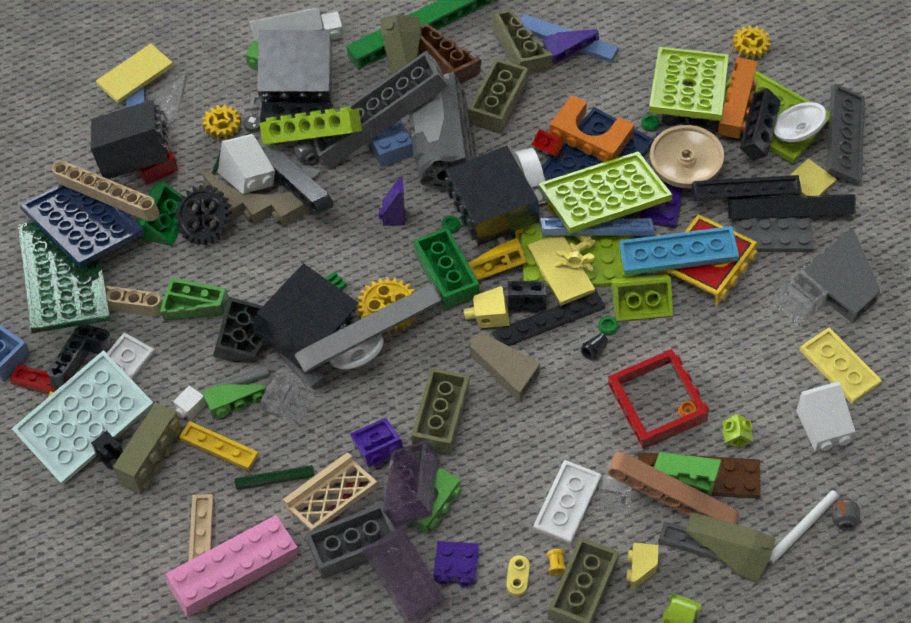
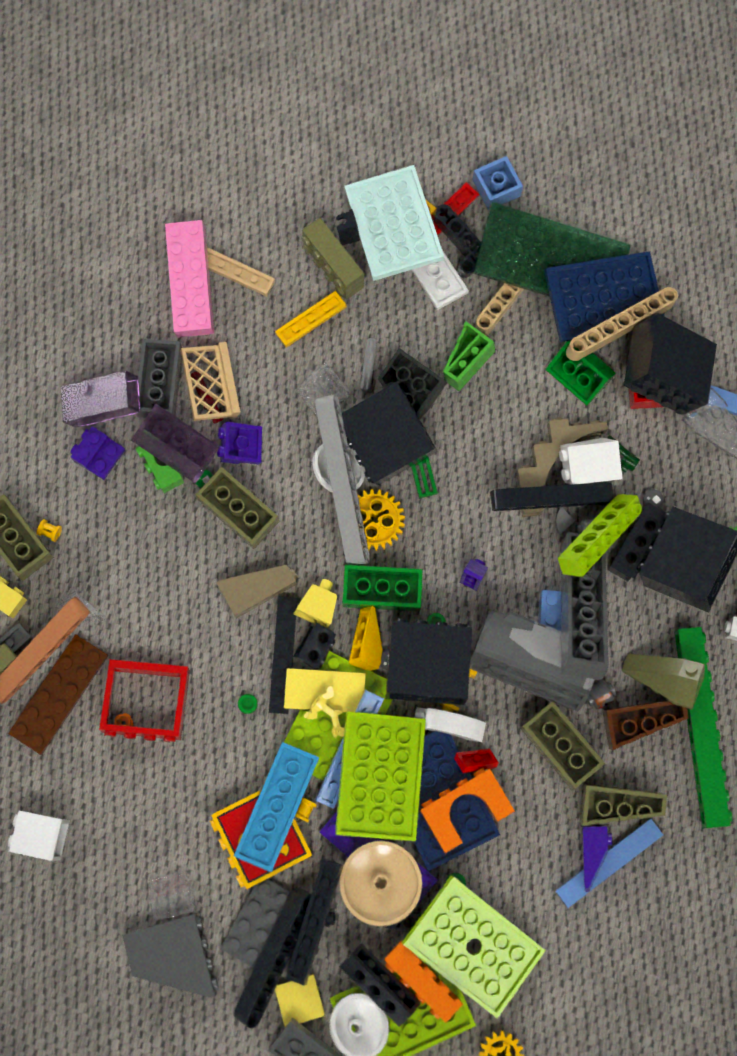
camera: 115 degrees right, 20 degrees up
(189, 403) = (364, 312): white brick -> none
(218, 212) = (556, 402): black gear -> none
(221, 122) = (663, 462): yellow gear -> none
(230, 397) = (352, 345): bright green slope -> none
(274, 477) = (257, 350): dark green axle -> none
(517, 574) = (57, 495): light yellow plate -> none
(567, 502) = (99, 571): white tile -> none
(592, 347) = (231, 677): black cone -> none
(642, 297) = (257, 749): lime slope -> none
(694, 471) = (53, 675): bright green wedge -> none
(737, 431) = (73, 750): lime brick -> none
(840, 364) = (88, 890): light yellow tile -> none

